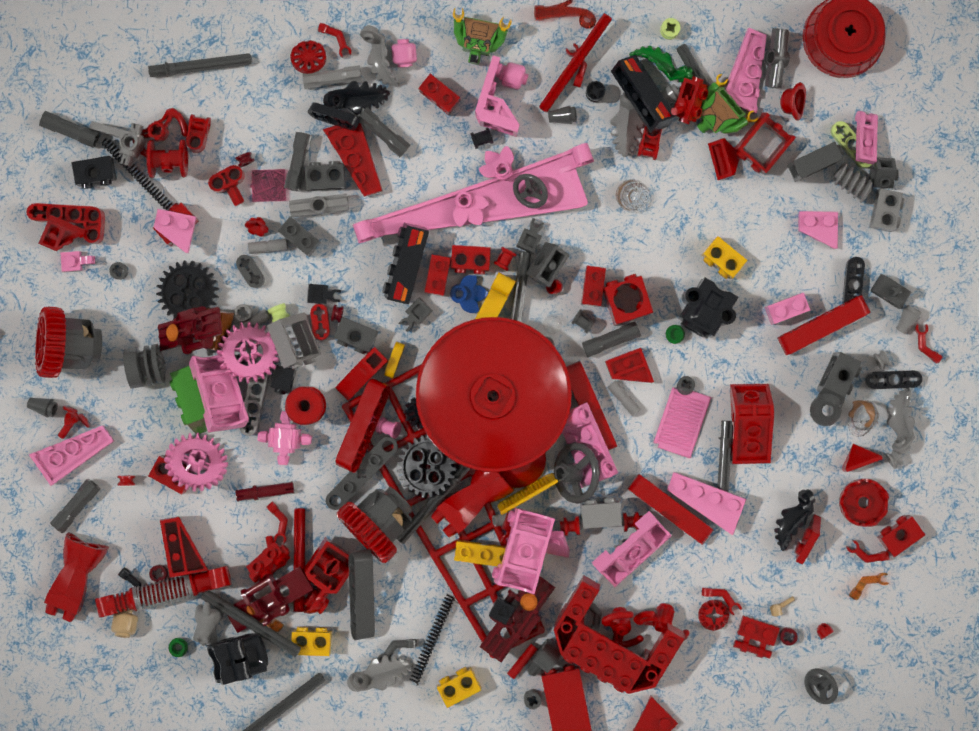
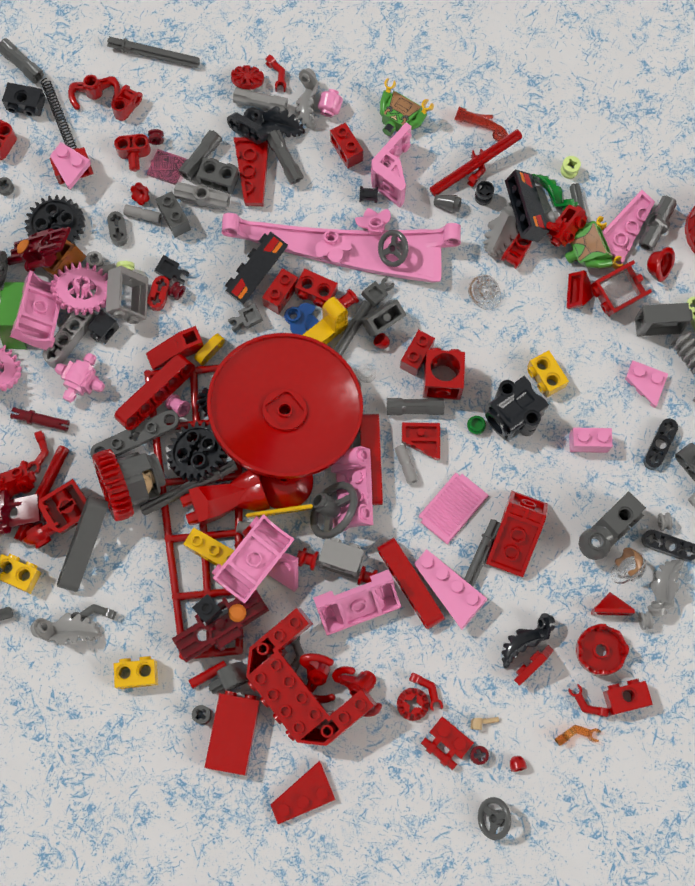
camera: 20 degrees right, 15 degrees down
(128, 153) = (65, 85): light grey piece -> none
(167, 161) = (88, 110): red hose -> none
(294, 408) = (111, 354): red hose -> none
(348, 326) = (179, 305): dark grey brick -> none
(434, 639) = (128, 622): black piece -> none
(513, 75) = (417, 154): bright pink head -> none
(583, 321) = (396, 380): dark grey bush -> none
(684, 391) = (472, 471): dark grey bush -> none
(824, 325) = (620, 467): red beam -> none

